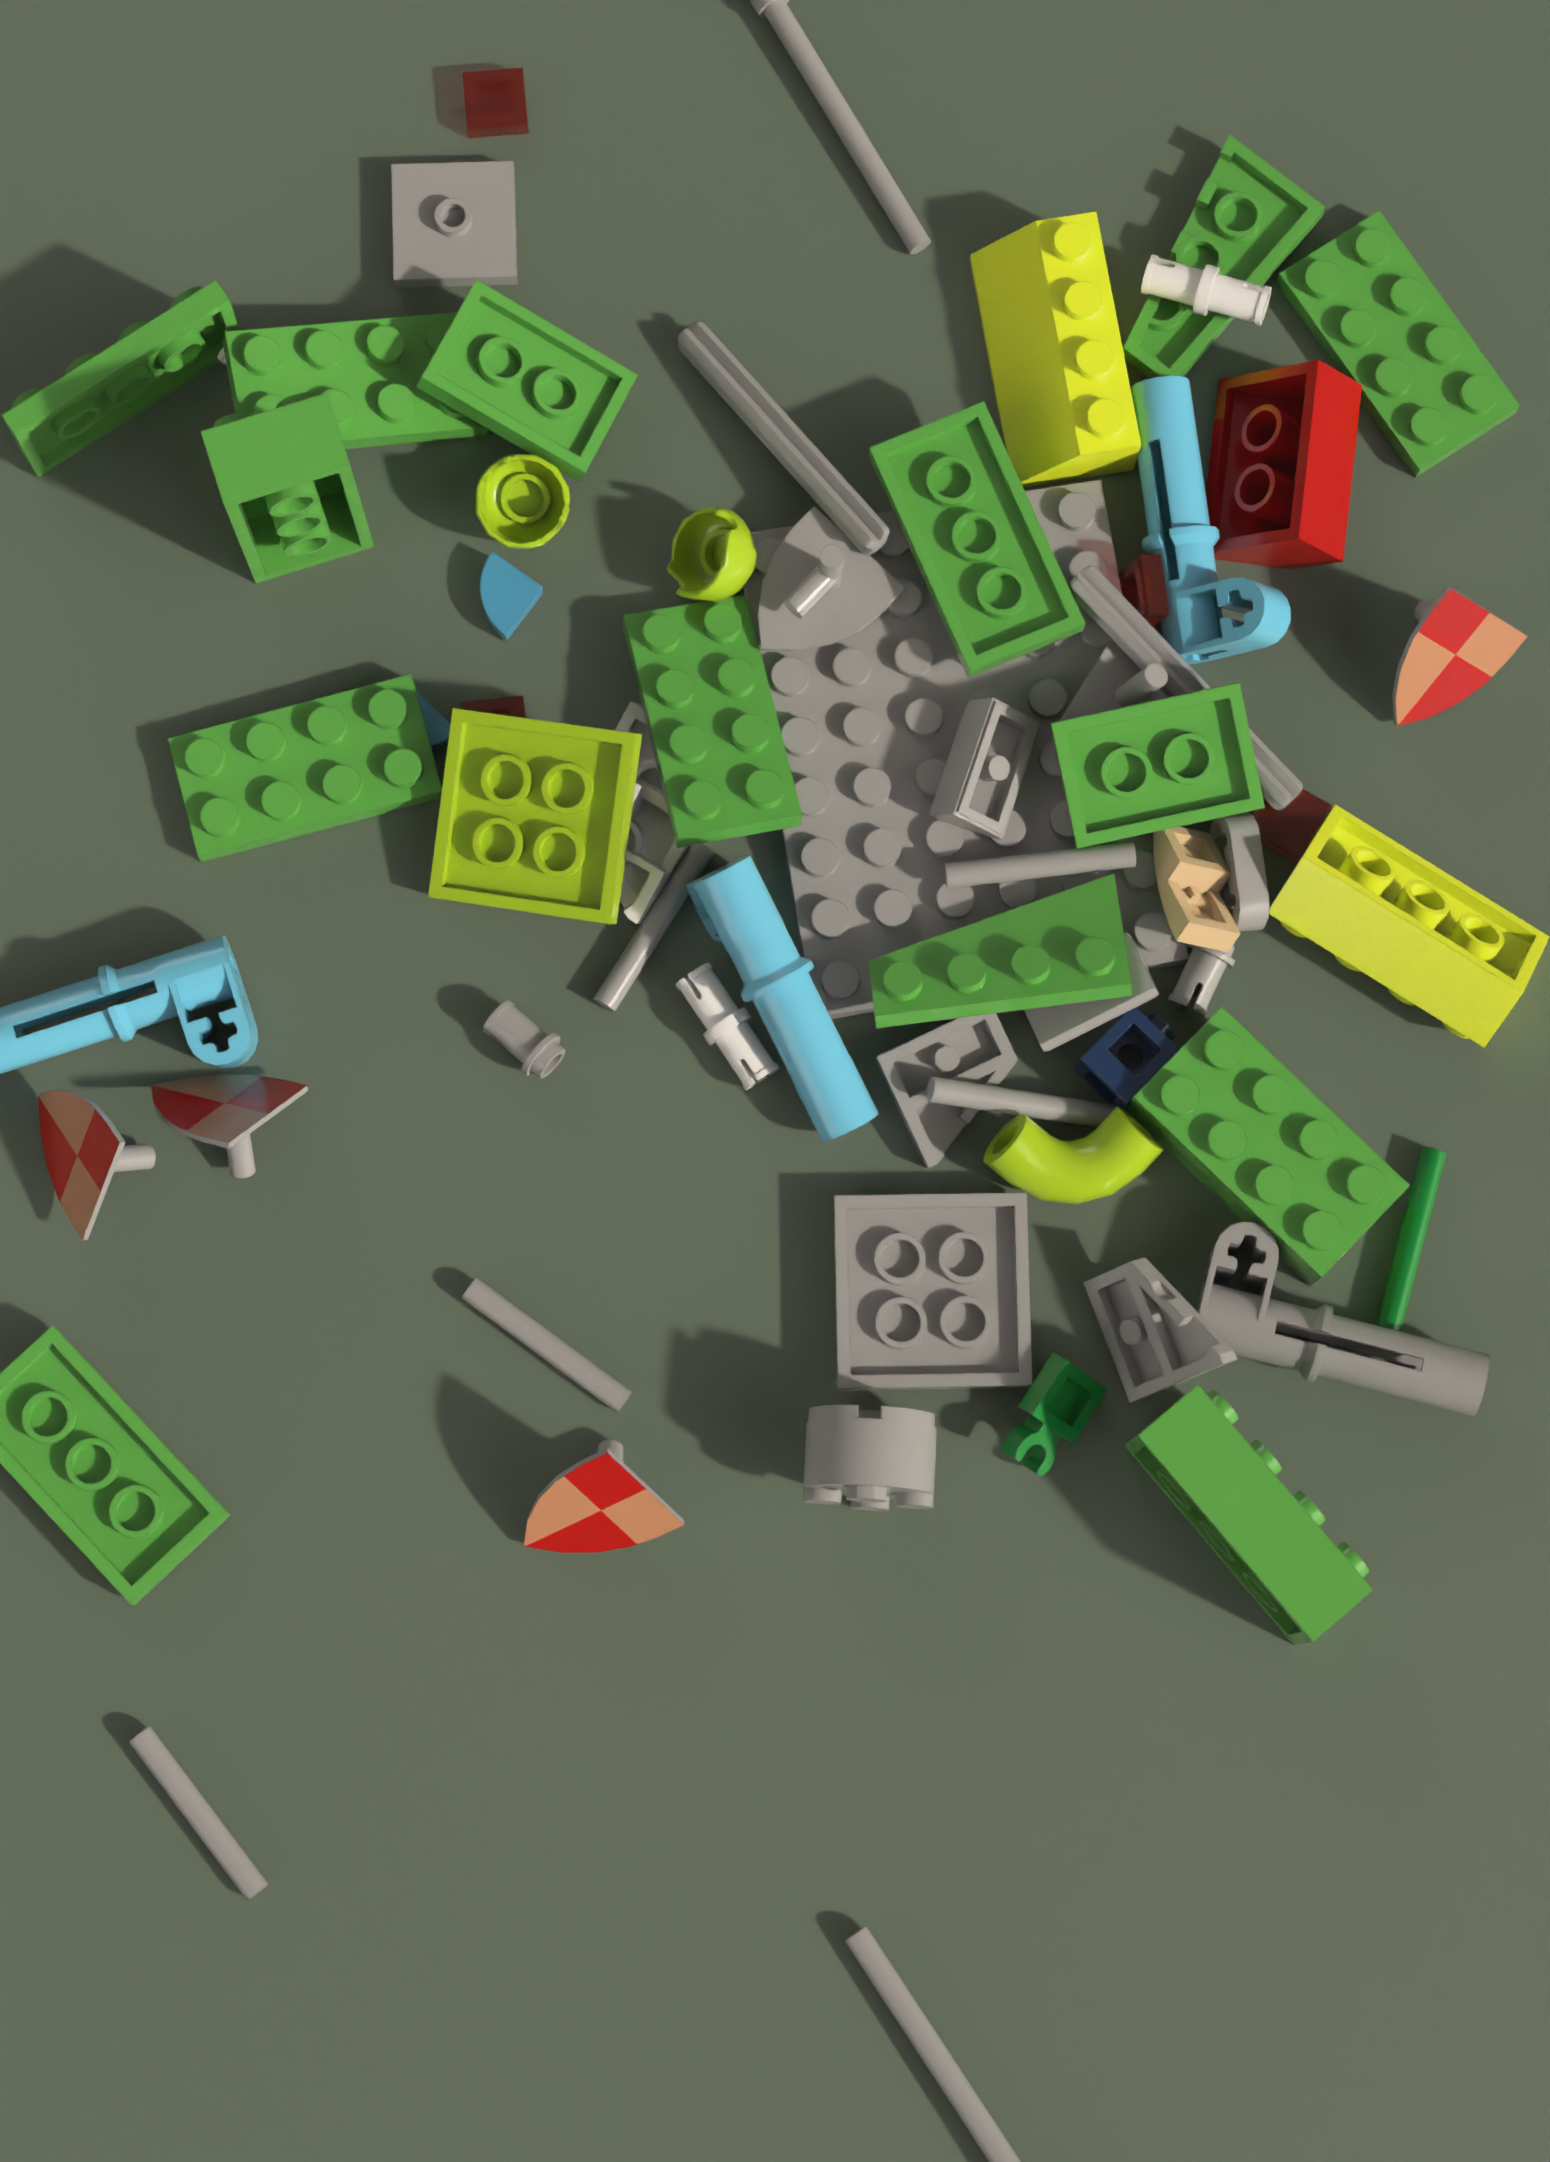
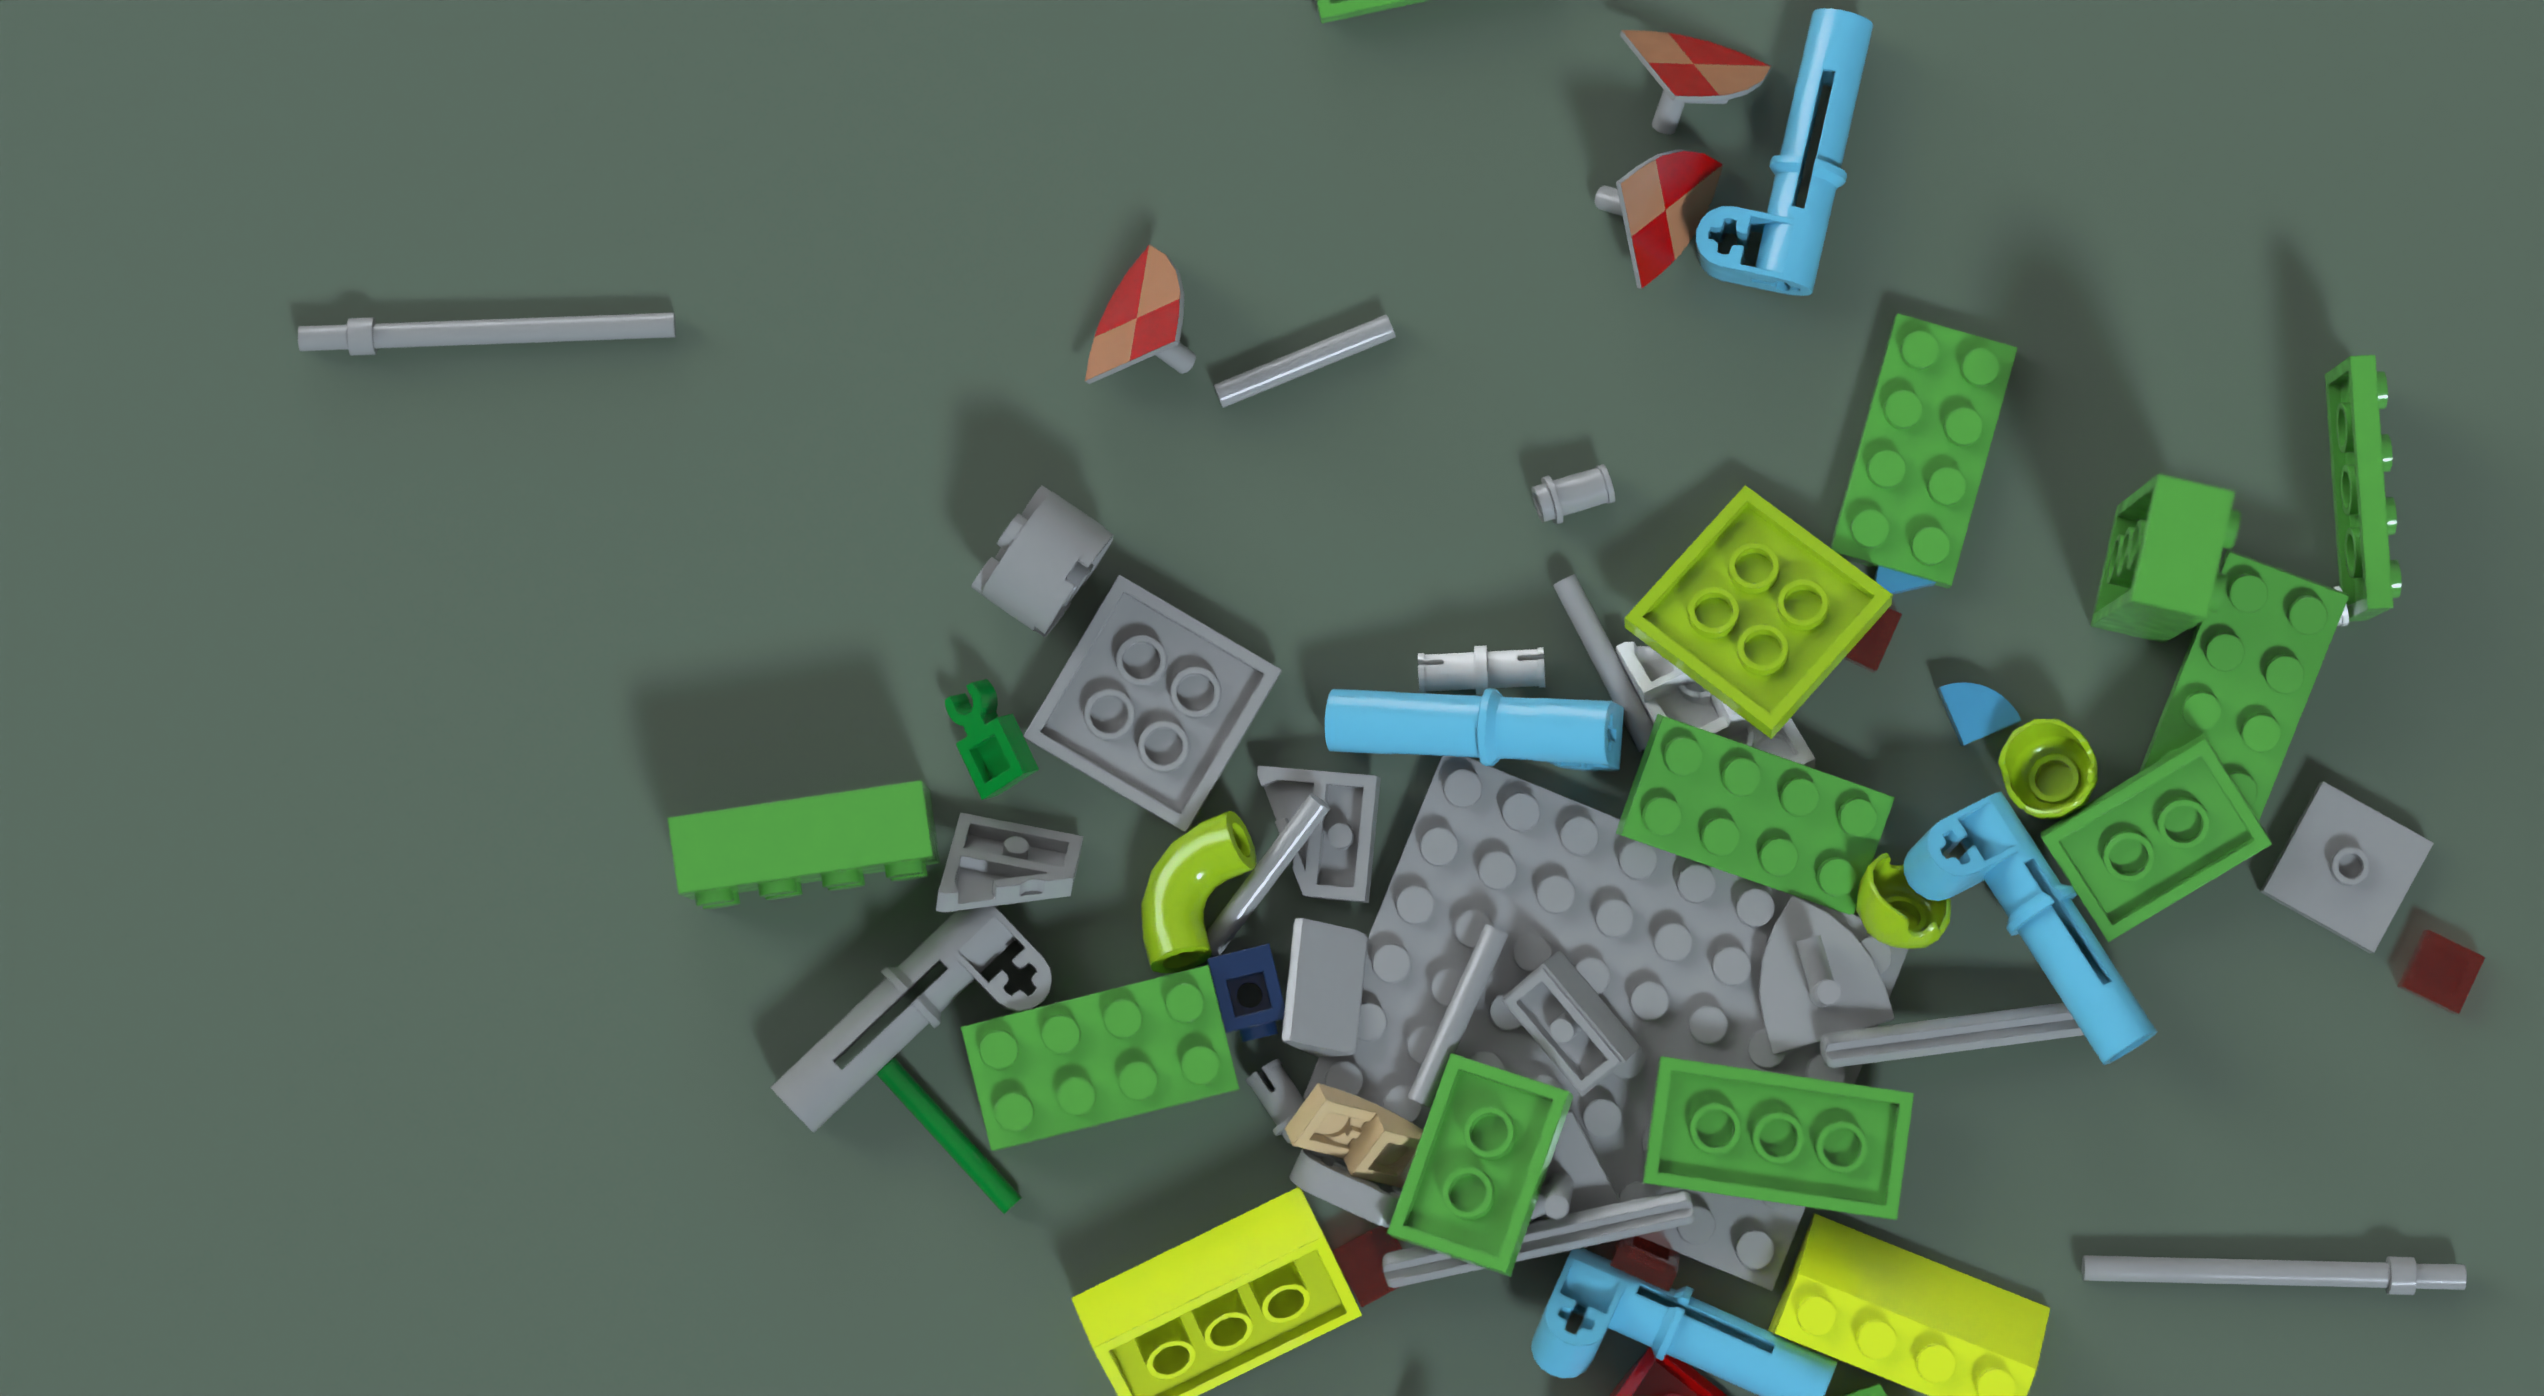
camera: 125 degrees right, 5 degrees up
(650, 439) = (2036, 909): none -> medium azure piece
(1021, 959) = (1385, 944): bright green wing -> none

